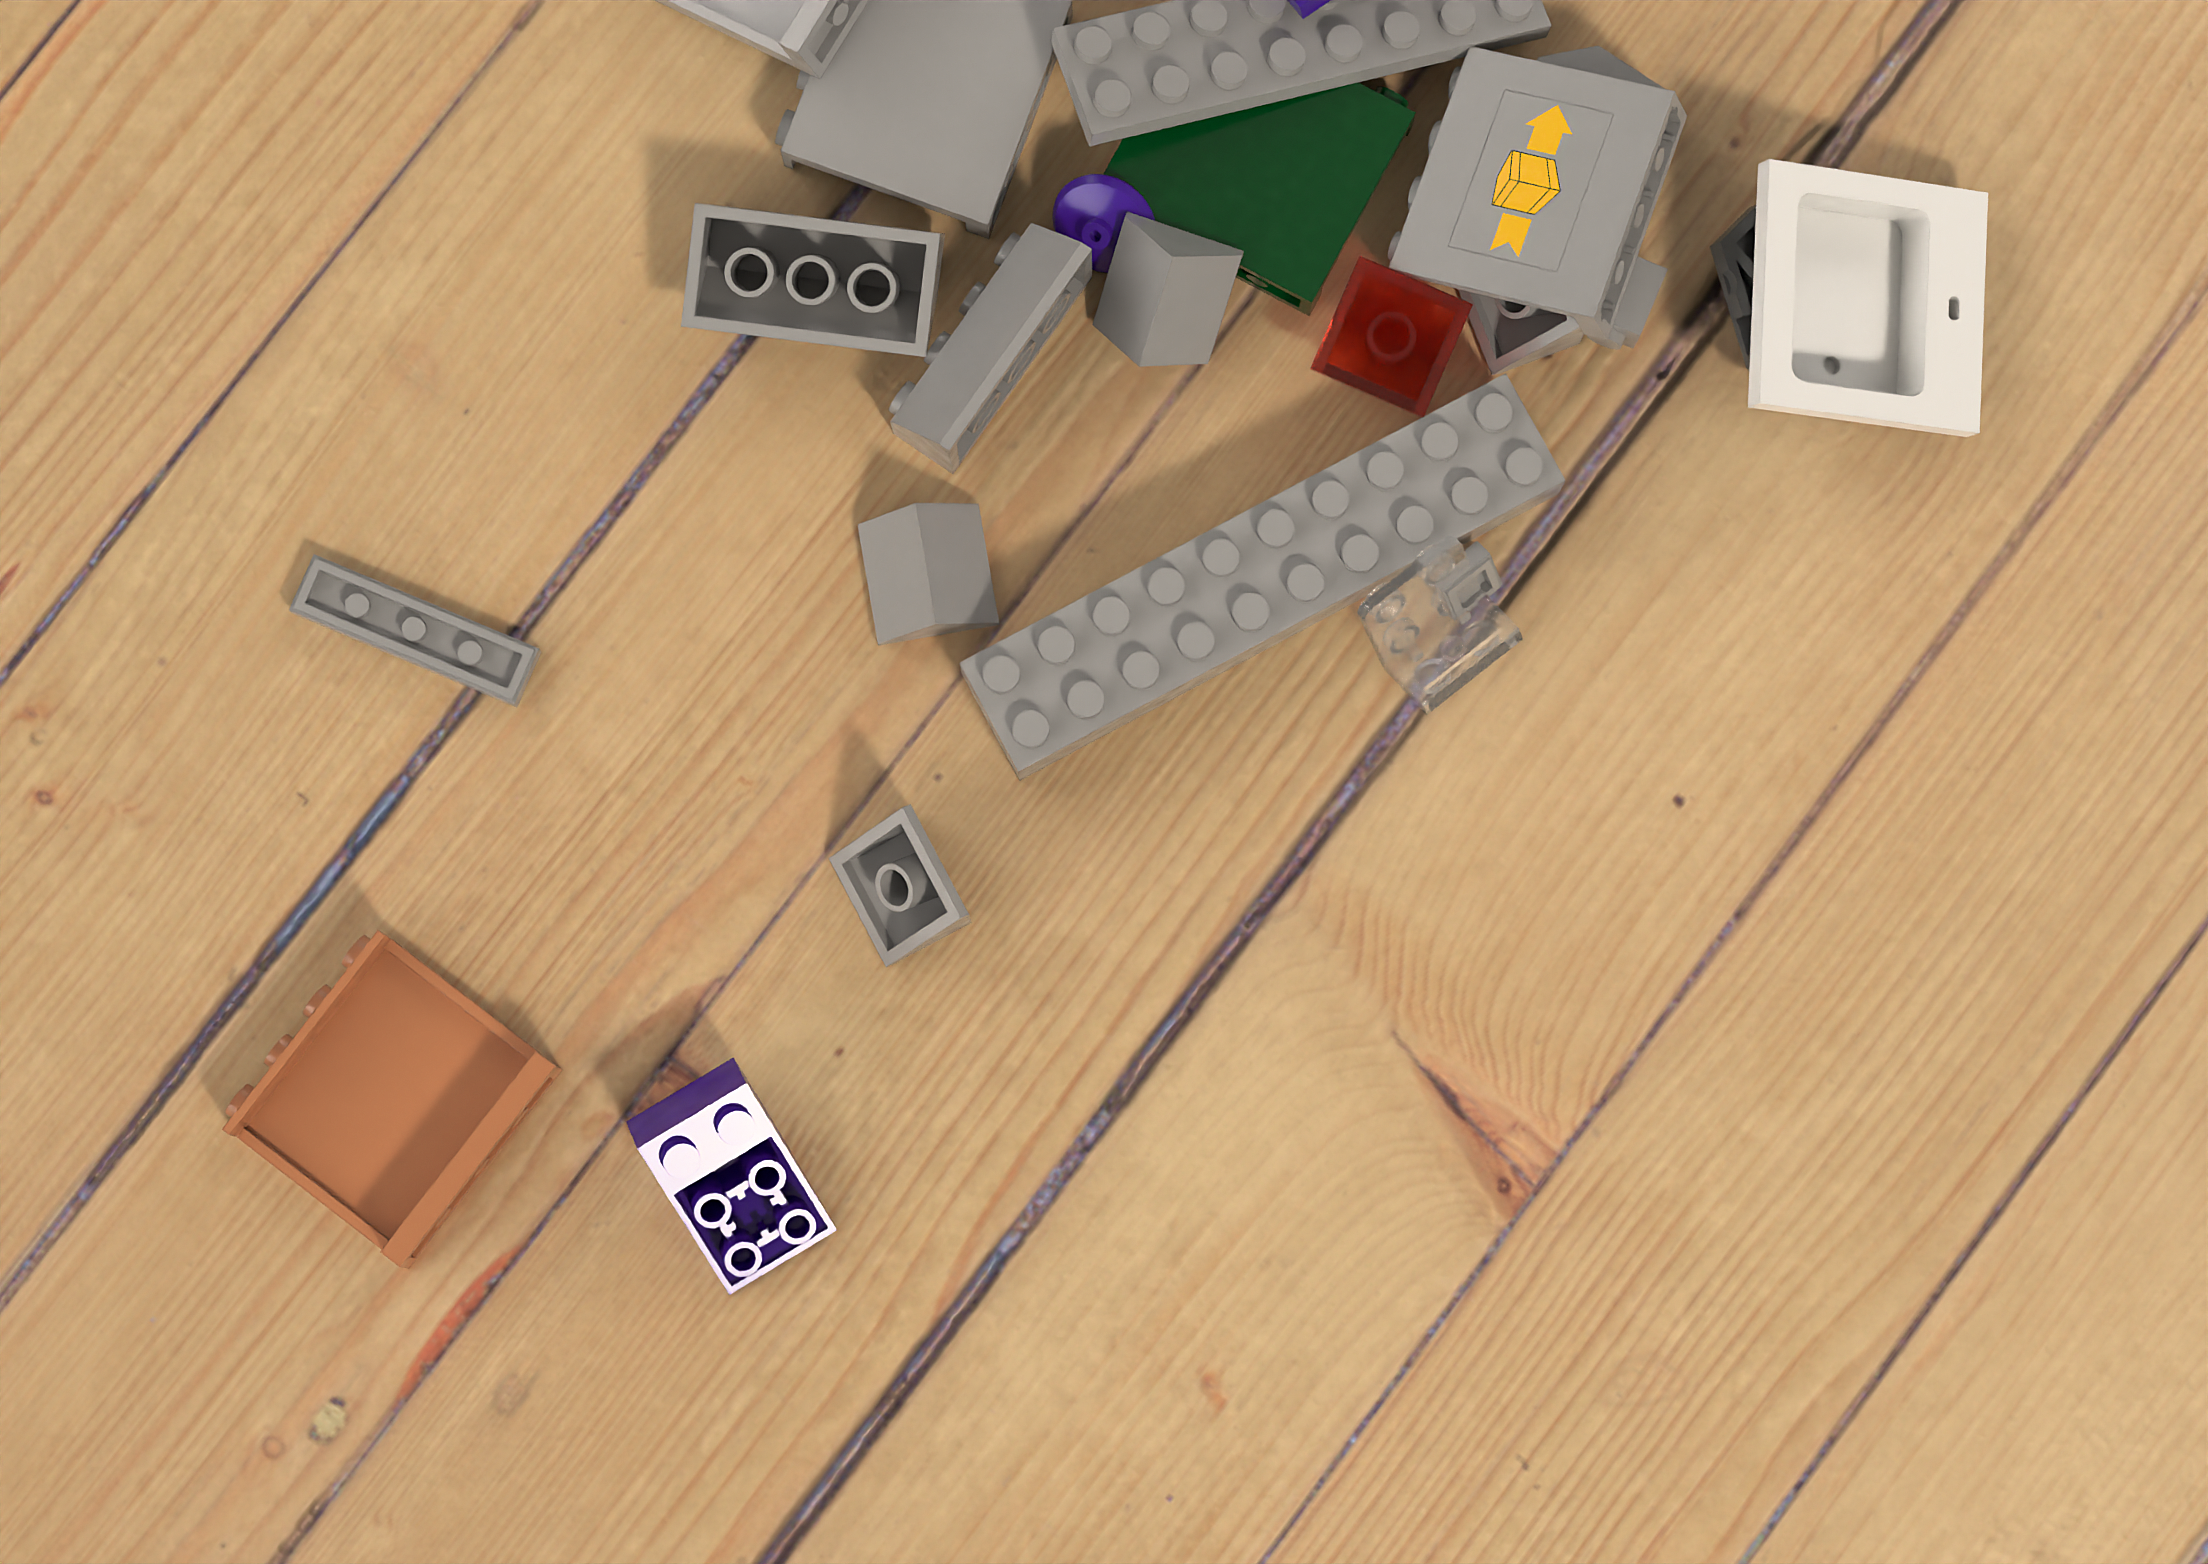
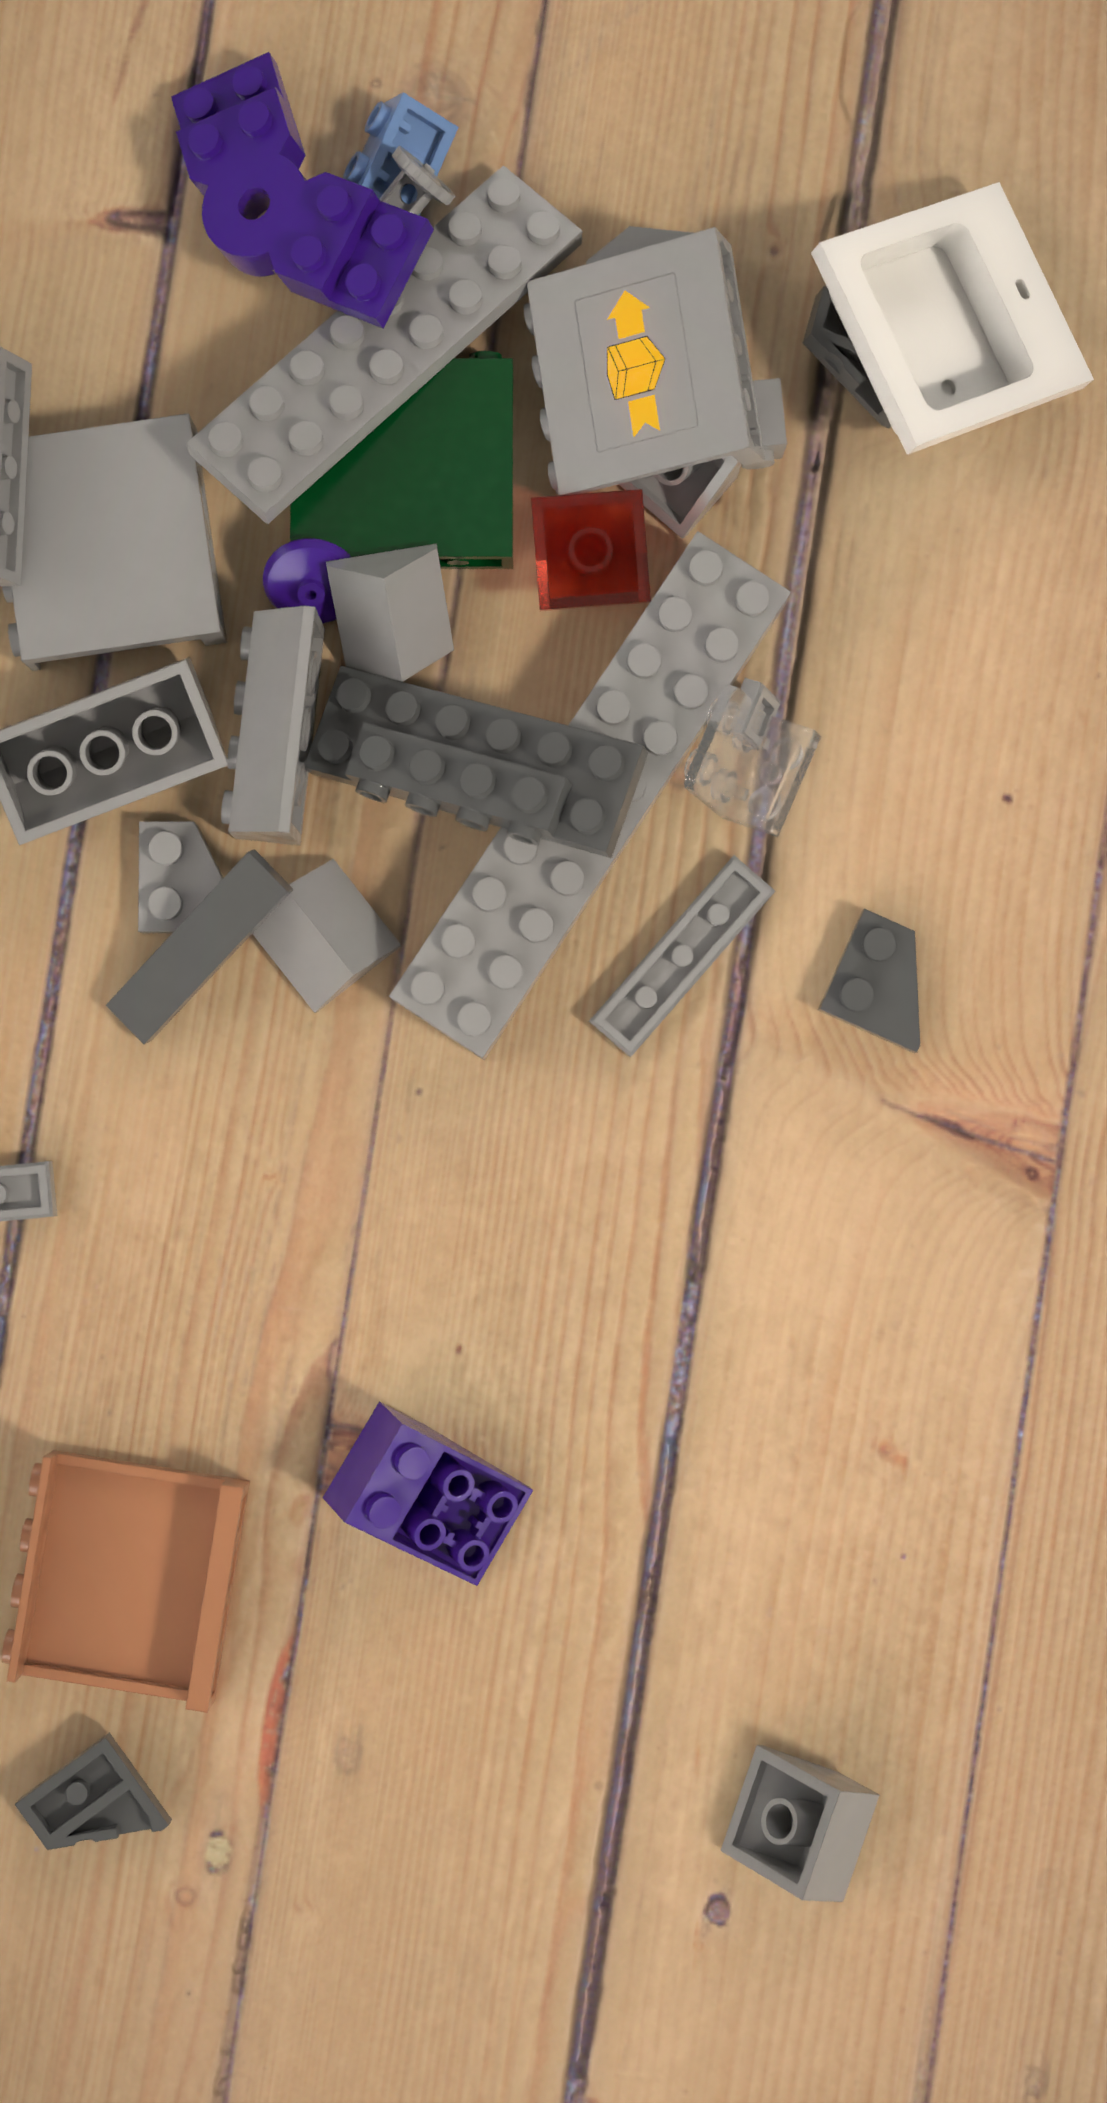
camera: 30 degrees left, 5 degrees up
(237, 1296) = (92, 1799): none -> dark grey wing
(800, 517) = (199, 946): none -> dark grey tile
(817, 449) = (173, 874): none -> light grey wing
(900, 887) = (436, 1196): light grey slope -> none
(1167, 481) = (476, 762): none -> dark grey plate
(1270, 782) = (682, 956): none -> light grey tile
(1450, 911) = (877, 982): none -> dark grey wing

